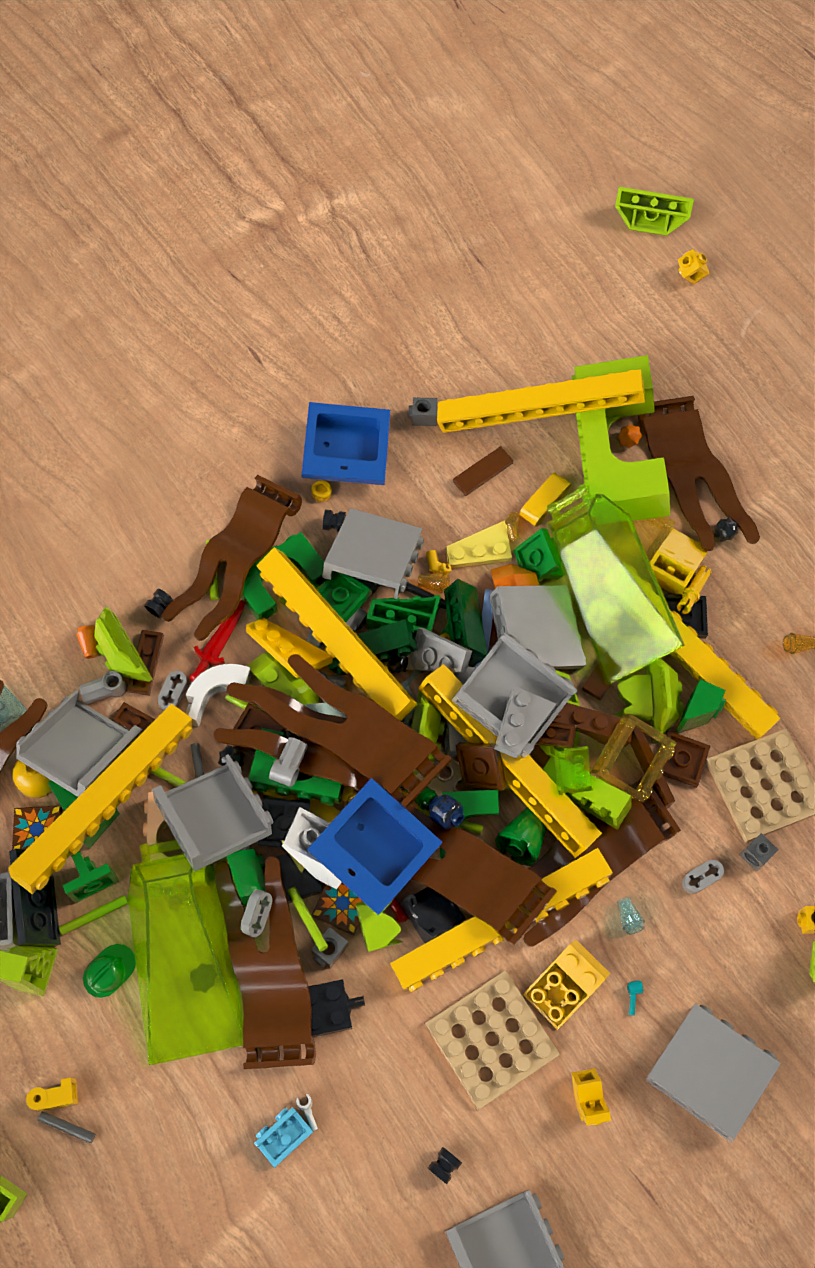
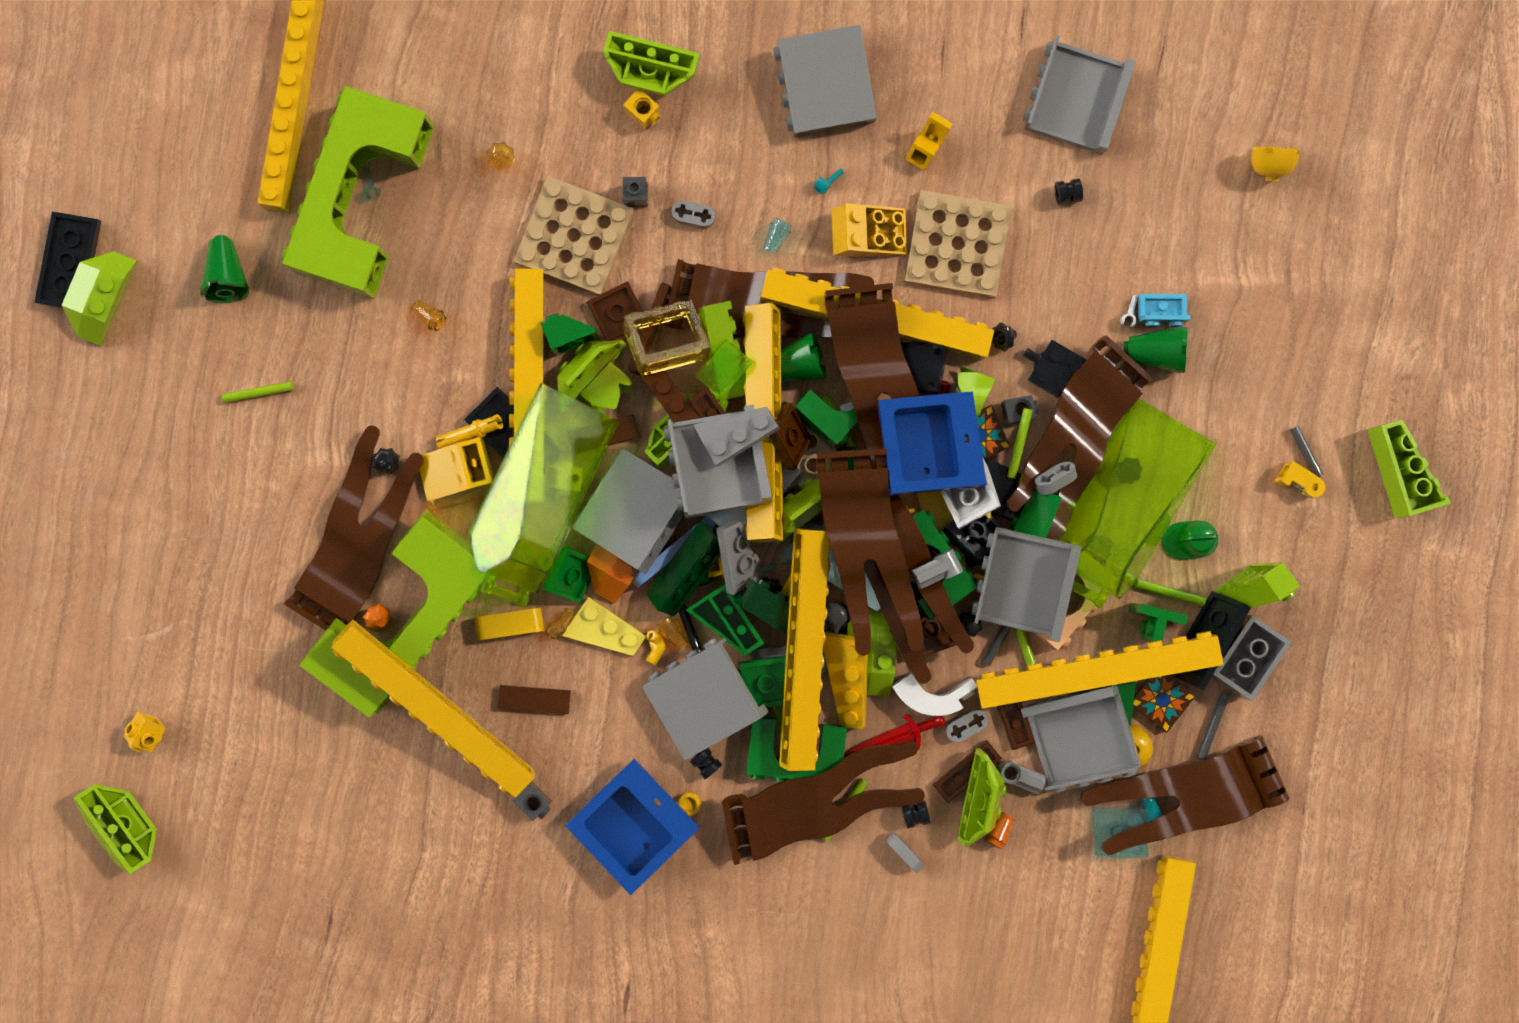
camera: 140 degrees left, 20 degrees up
(145, 574) = (905, 852): none -> light grey beam
(258, 1097) = (1160, 349): none -> green cone
(391, 995) = (1003, 337): none -> black piece
(446, 811) = (851, 423): dark blue head -> none

